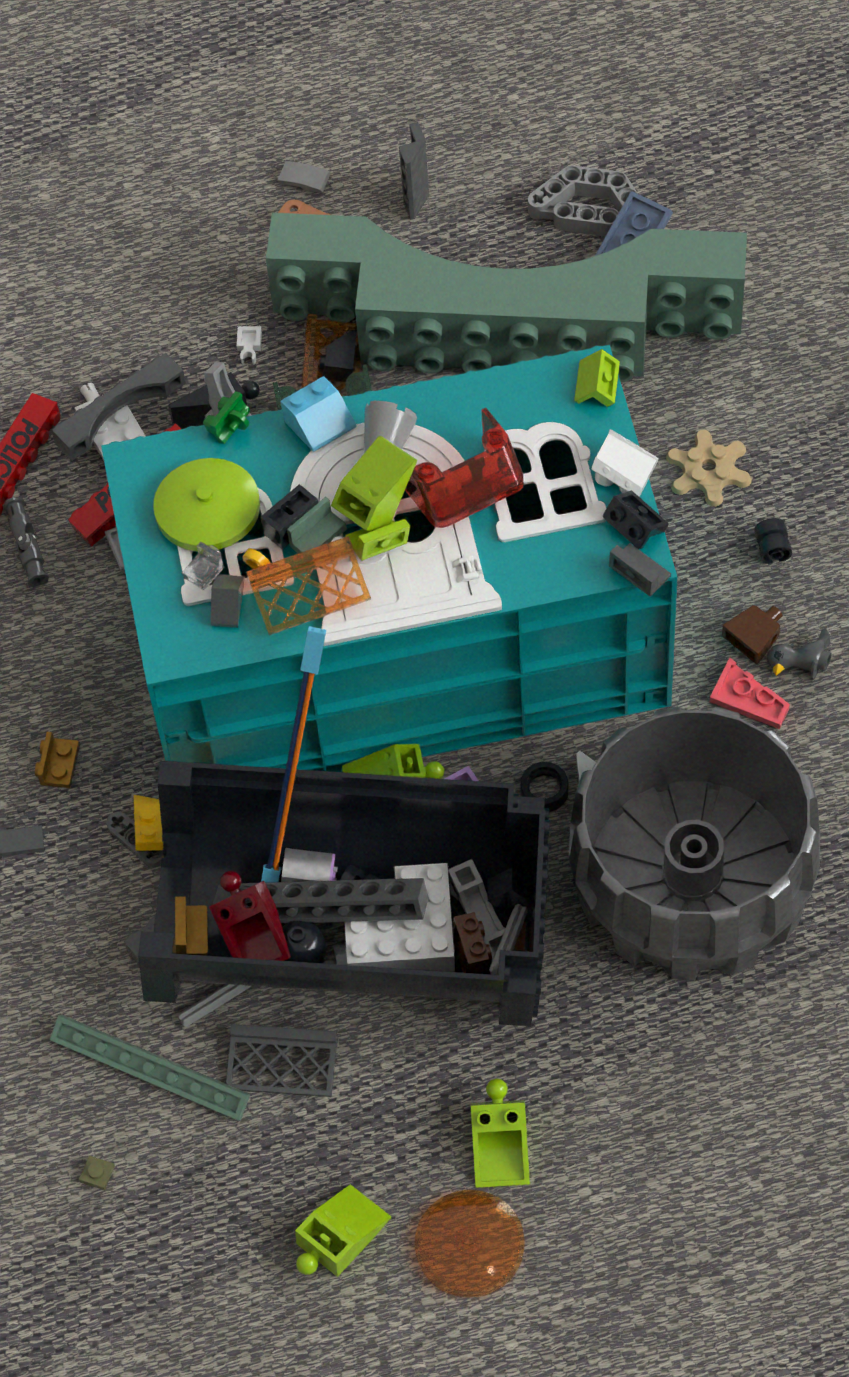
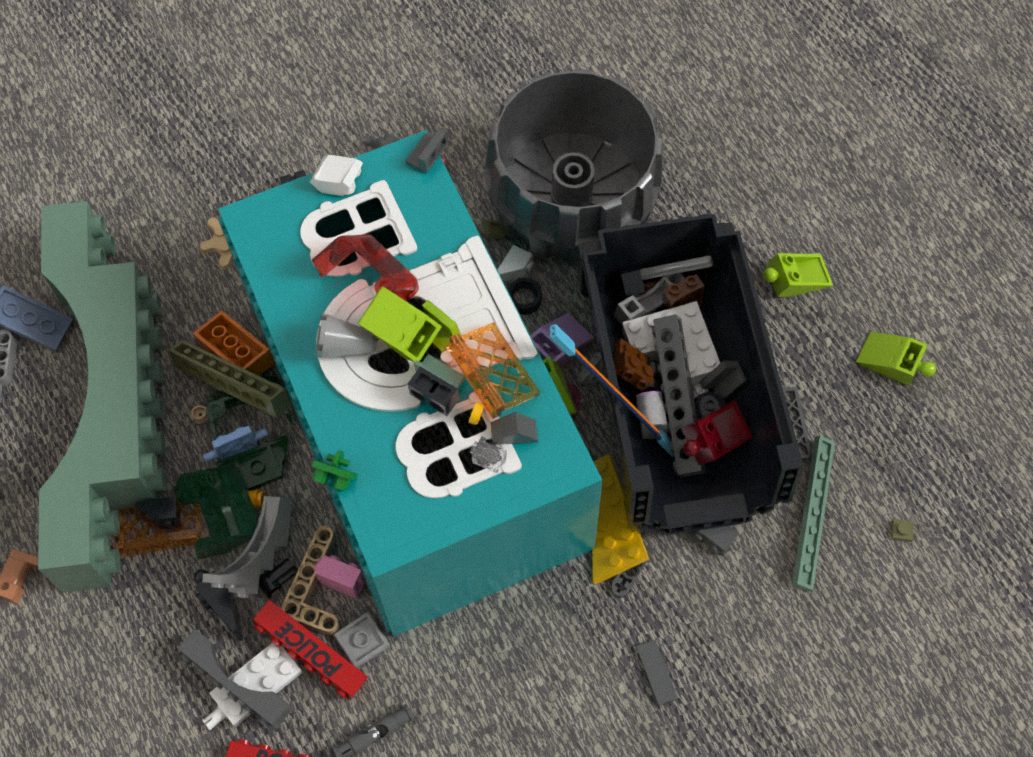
camera: 105 degrees left, 5 degrees up
(57, 761) = (576, 649): pearl gold bracket -> none
(190, 928) = (715, 492): pearl gold panel -> none
(206, 504) = (424, 469): lime dish -> none
(249, 341) = (144, 596): white plate -> none
(317, 414) = (323, 399): medium azure slope -> none
(371, 849) = (632, 365): none -> reddish brown plate
(469, 1243) = (873, 281): clear orange dish -> none
(597, 378) = (257, 207): lime panel -> none
(634, 518) = (386, 158): black bracket -> none

